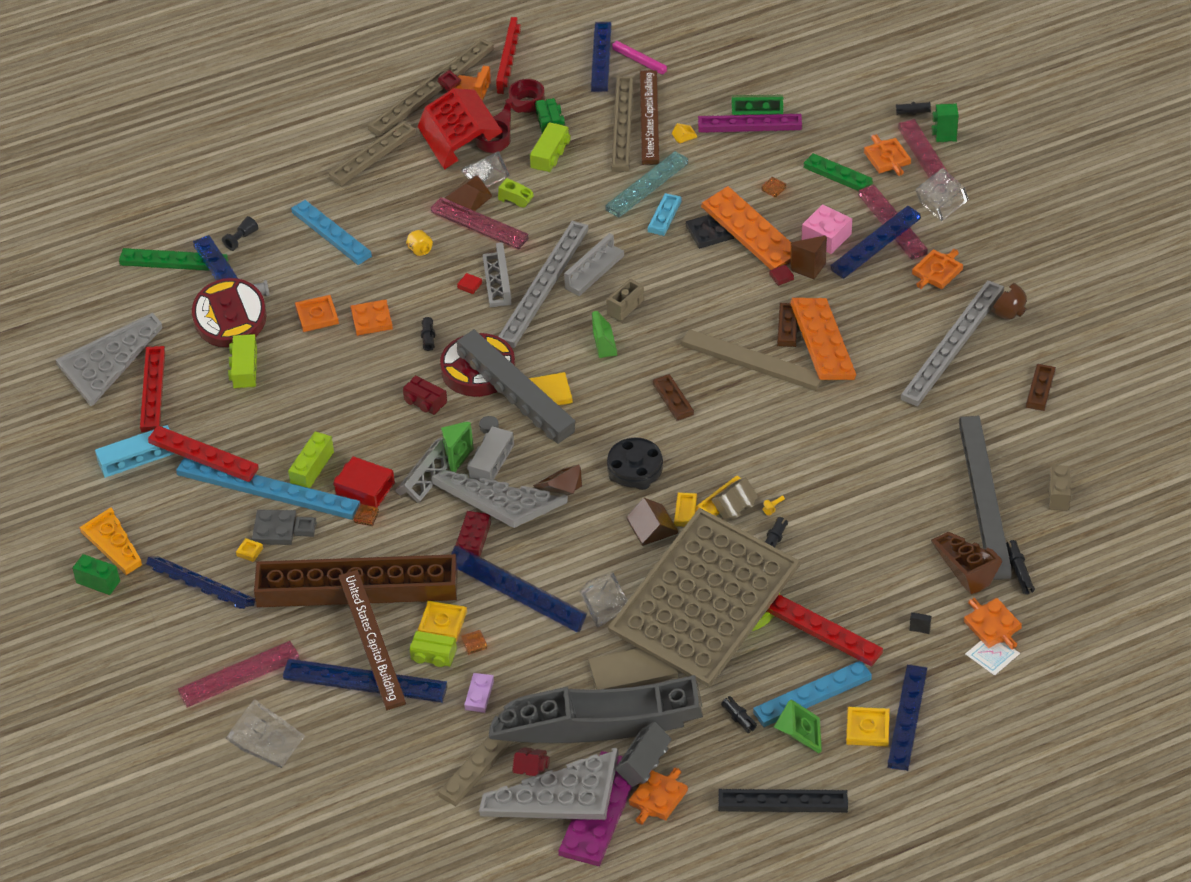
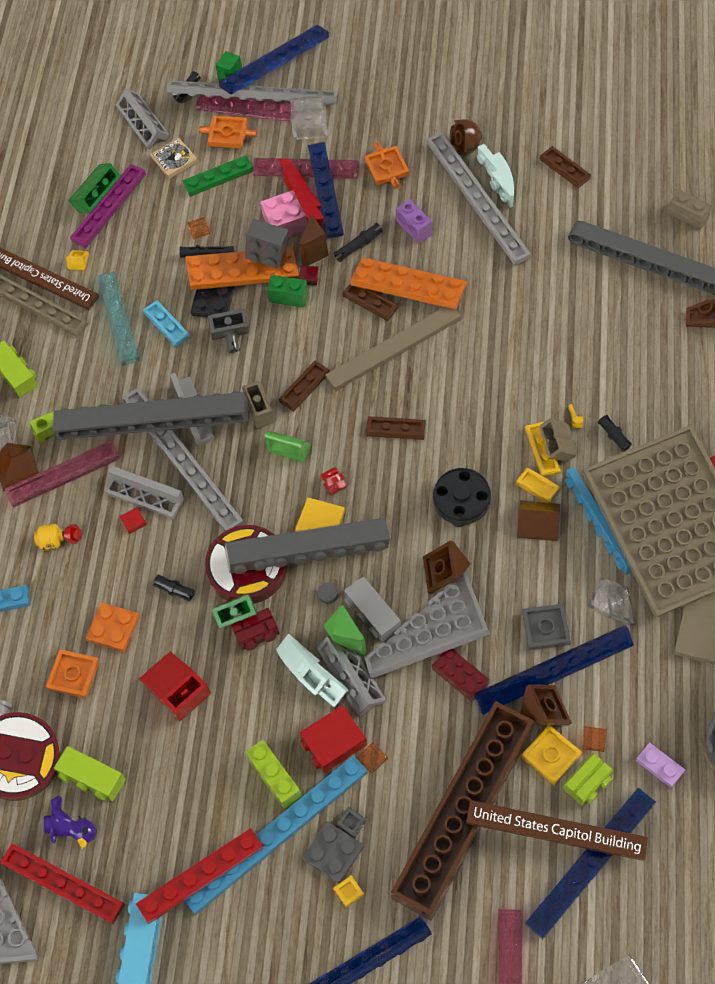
camera: 55 degrees left, 15 degrees up
(195, 364) = (62, 825): none -> dark purple animal
(344, 374) = (175, 685): none -> red slope
(407, 441) = (309, 672): none -> light aqua slope
(425, 369) = (234, 610): none -> green slope
(431, 254) = (72, 534): none -> red plate
(479, 594) = (544, 705): none -> reddish brown slope
(552, 568) = (546, 627): none -> dark grey plate
(560, 239) = (150, 415): none -> dark grey brick
(591, 380) = (333, 481): none -> red piece
(669, 323) = (303, 386): none -> reddish brown tile
(685, 247) = (228, 326): none -> dark grey brick
(749, 197) = (201, 250): none -> black pin
(751, 267) = (287, 291): none -> green brick
(775, 223) = (266, 243): none -> dark grey brick
(833, 138) = (174, 158): none -> tile
(838, 288) = (364, 238): none -> black pin
(851, 229) = (304, 194): none -> red wedge
(857, 98) = (144, 114): none -> light grey fence
(889, 312) = (414, 221): none -> medium lavender brick
(939, 147) = (258, 92): none -> light grey plate
(987, 143) = (273, 59): none -> clear blue plate
(988, 347) = (500, 173): none -> light aqua slope

